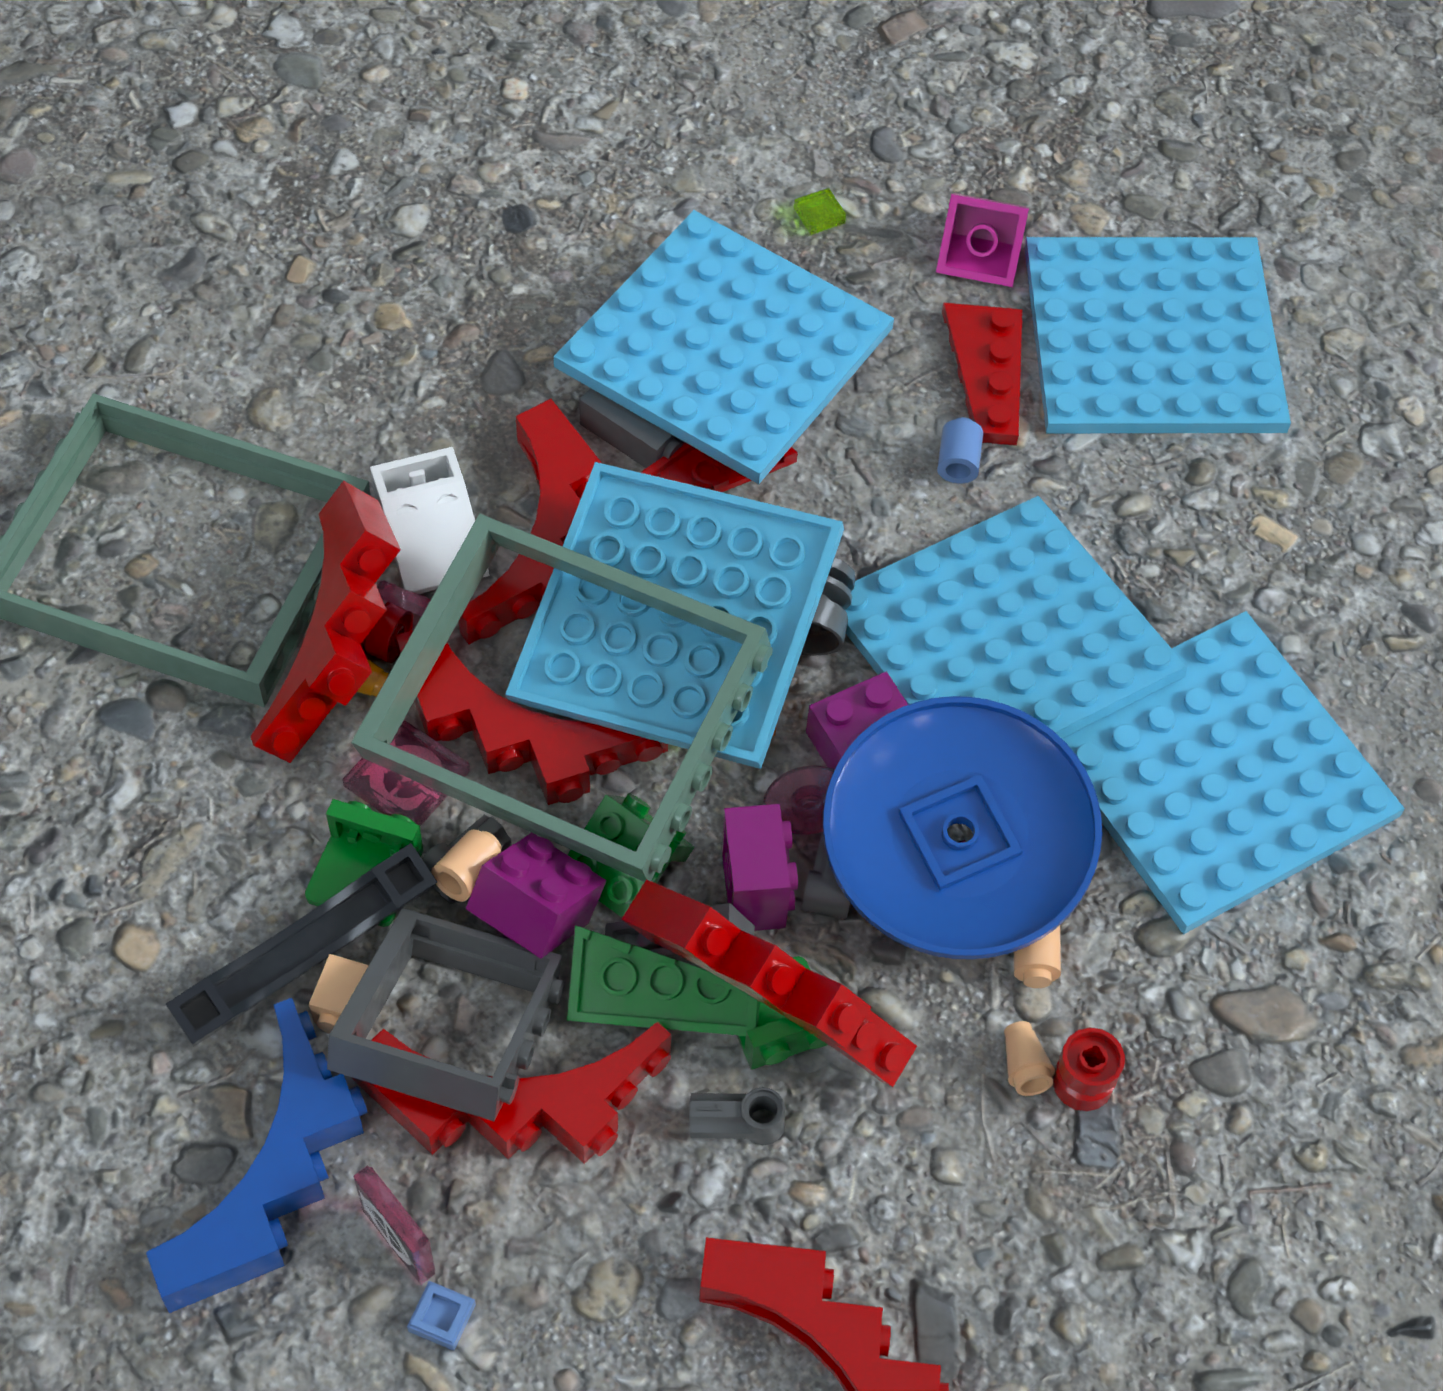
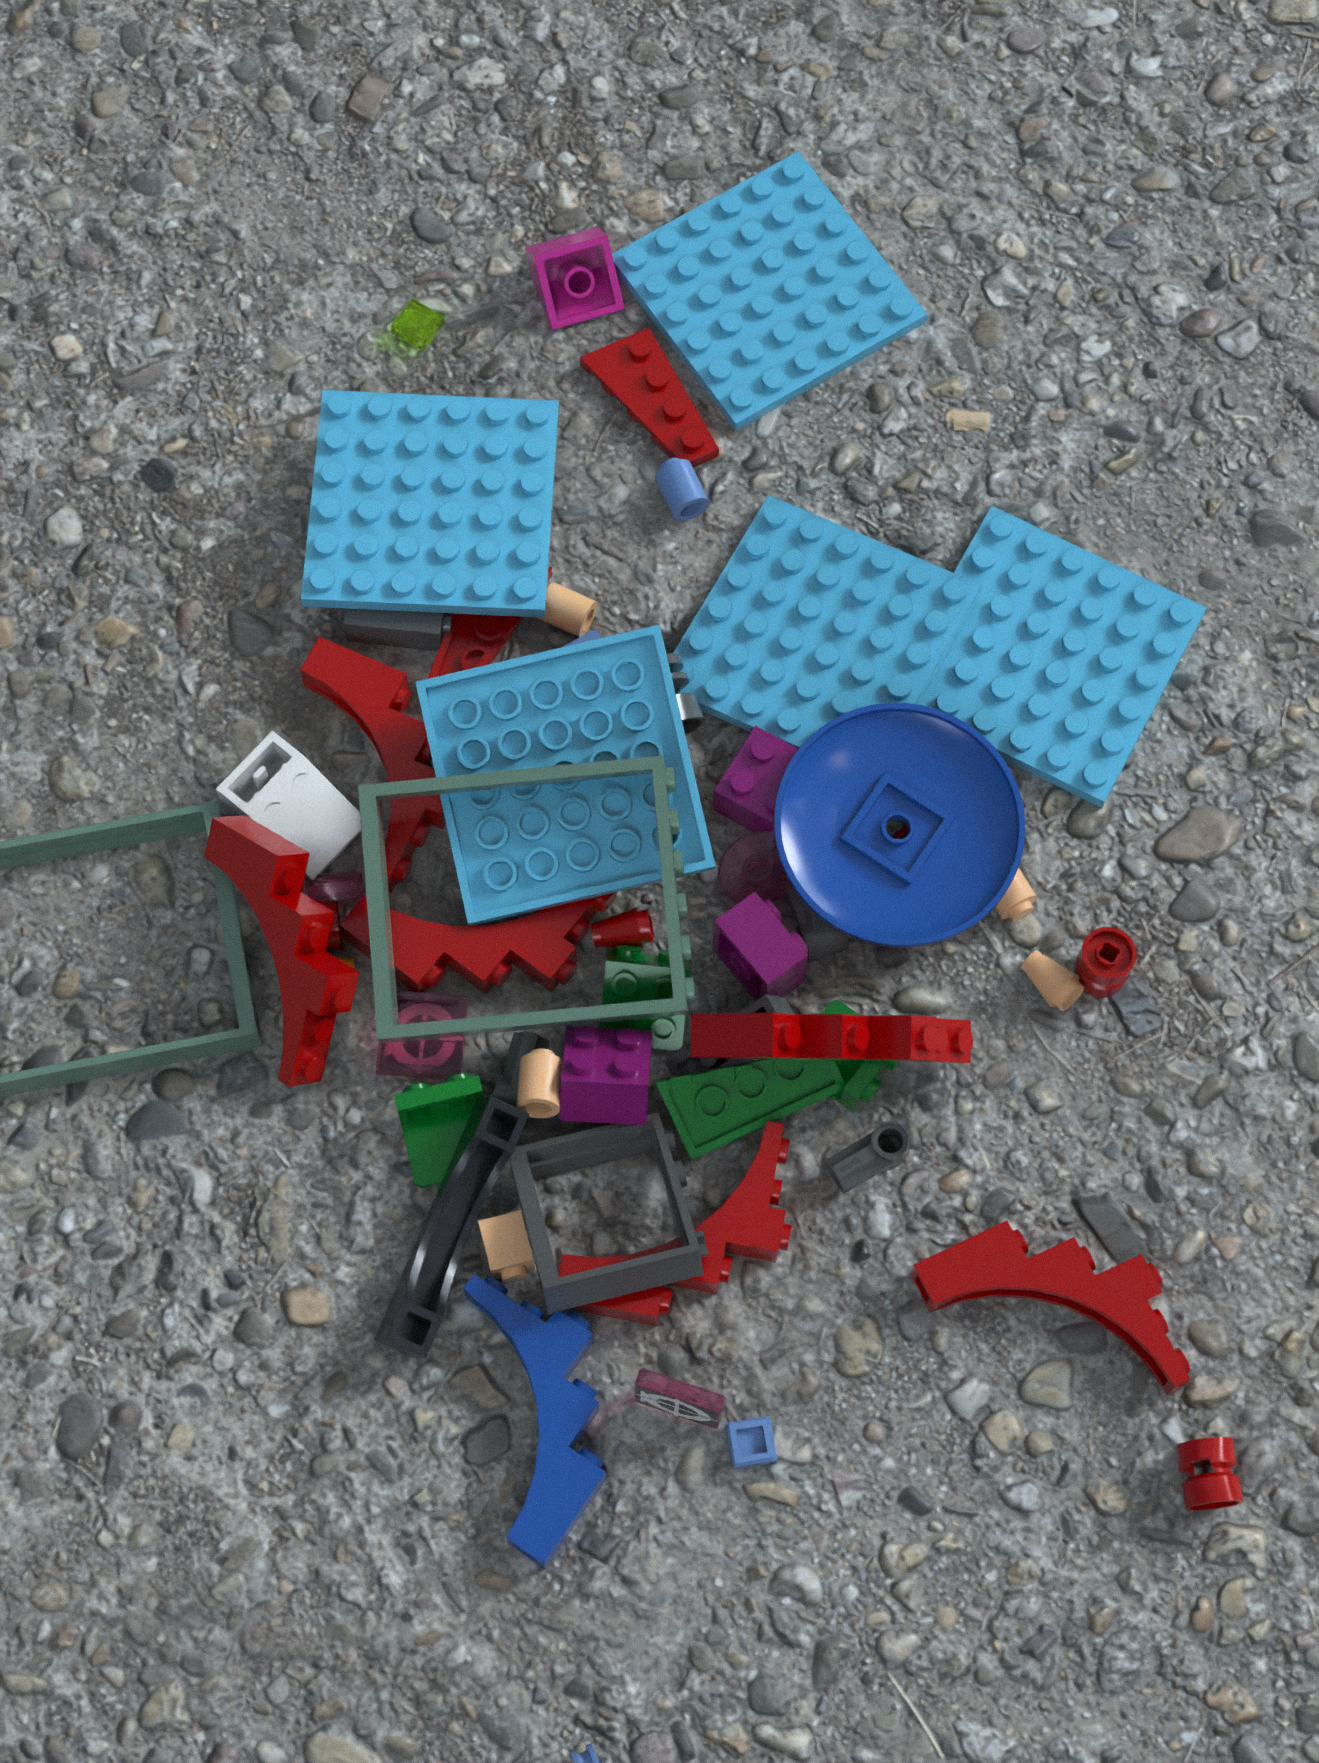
camera: 30 degrees left, 10 degrees up
(643, 782) = (625, 928): none -> red cone
(787, 489) = (569, 610): none -> light nougat brick

